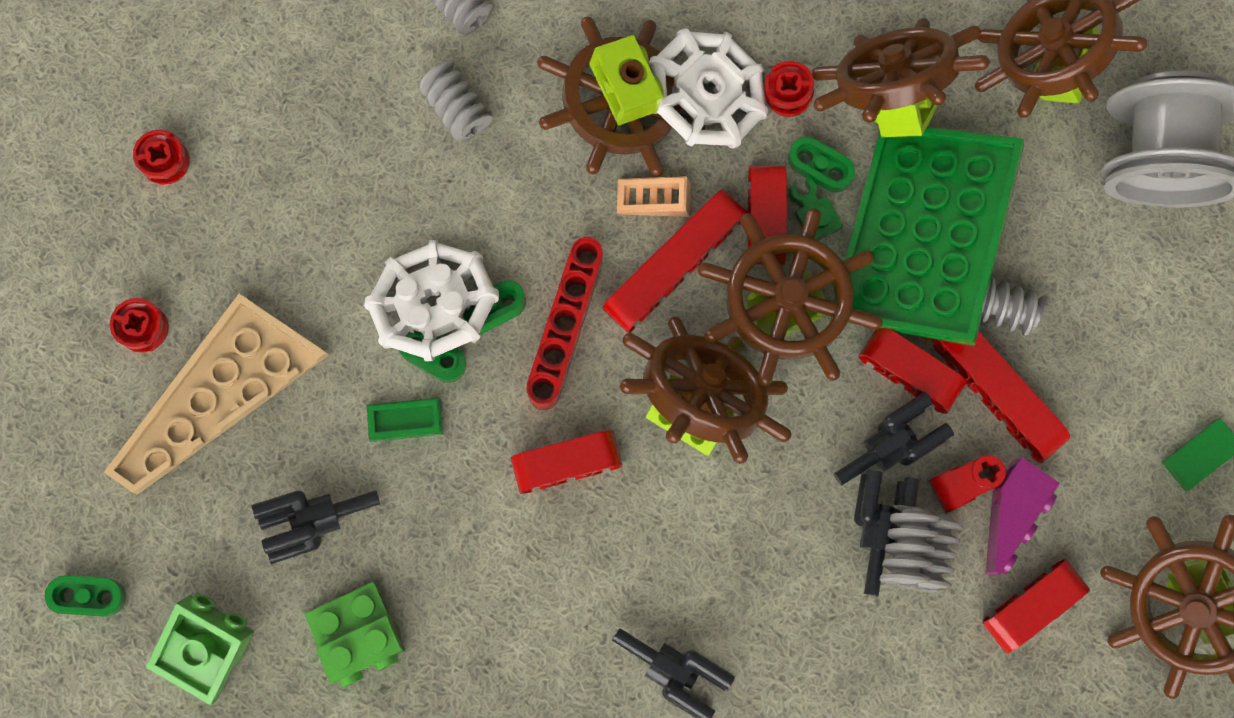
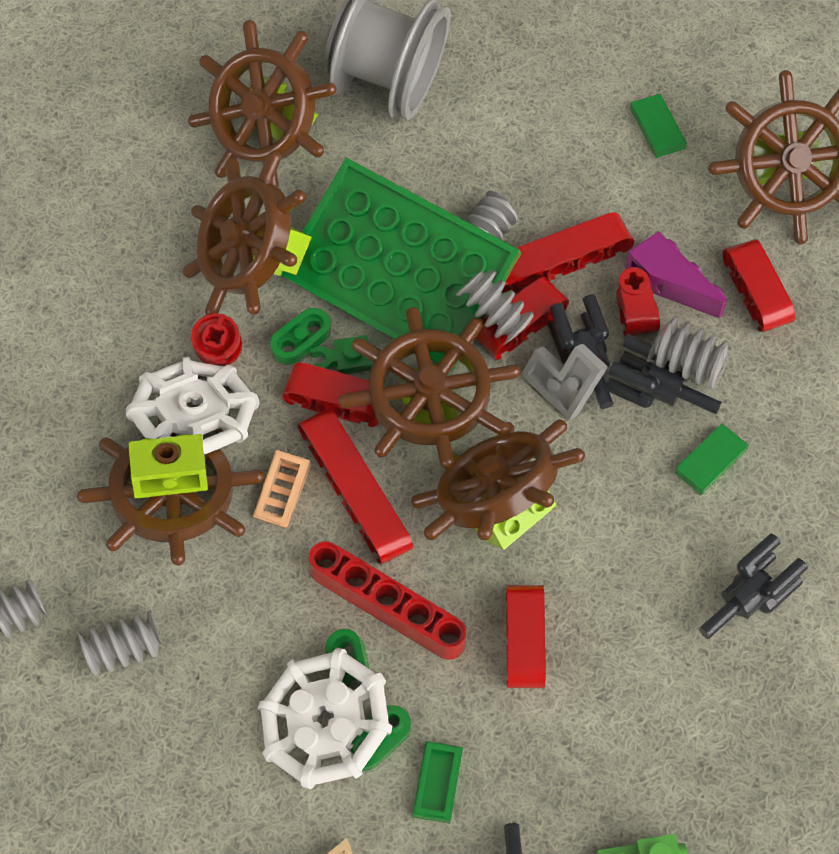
camera: 70 degrees left, 15 degrees down
(815, 601) = (711, 459): none -> green tile
(848, 433) = (568, 384): none -> light grey plate
(901, 335) = (496, 304): none -> light grey piece

